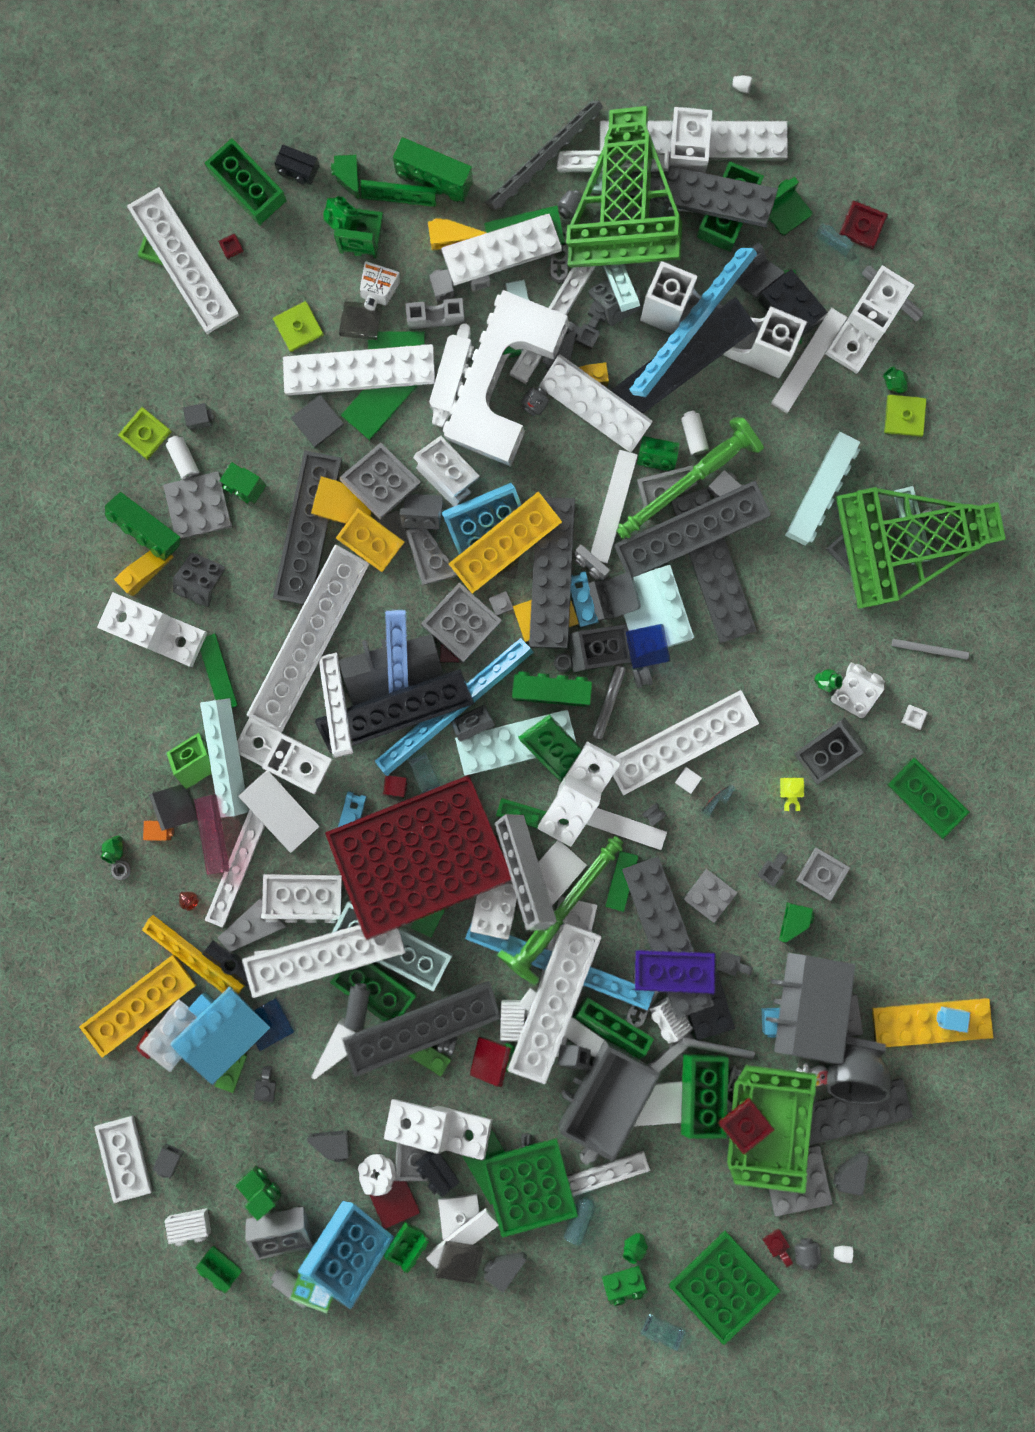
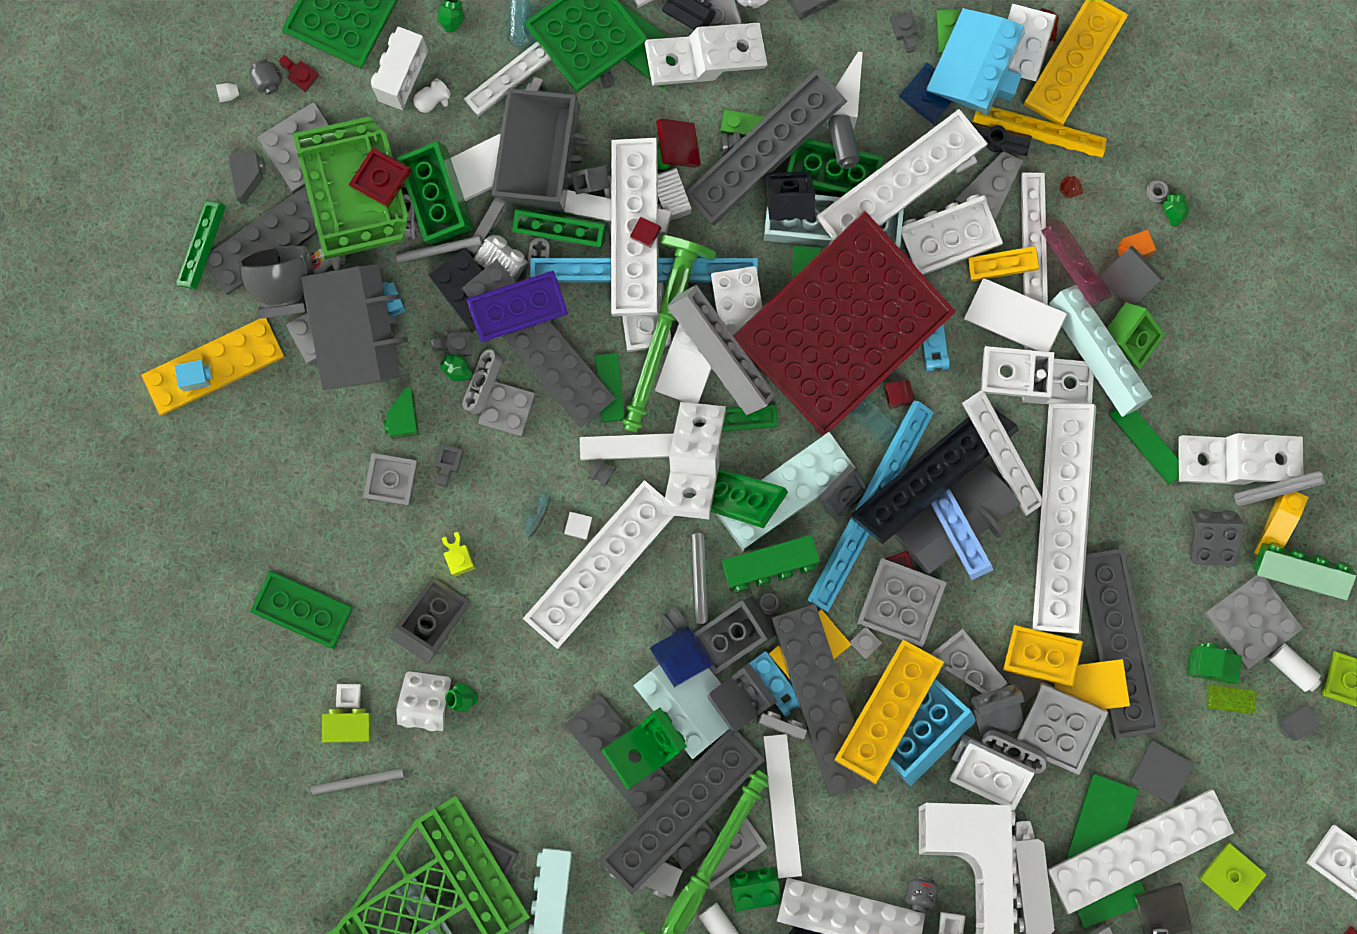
camera: 155 degrees right, 5 degrees down
(132, 594) = (1280, 488): none -> light grey axle
(241, 454) = (1231, 699): none -> clear neon green tile
(269, 857) = (1004, 263): none -> yellow plate
(419, 979) = (790, 195): none -> black slope
(423, 485) = (1010, 742): none -> light grey beam
(548, 993) = (645, 232): none -> dark red tile
(679, 1182) = (428, 97): none -> white animal
(695, 588) = (652, 740): none -> green bracket
(695, 1217) = (399, 68): none -> white brick
(723, 916) = (479, 399): none -> light grey beam
(739, 944) = (455, 367): none -> green rock
(909, 1128) = (201, 245): none -> green tile
(924, 692) = (347, 727): none -> lime brick

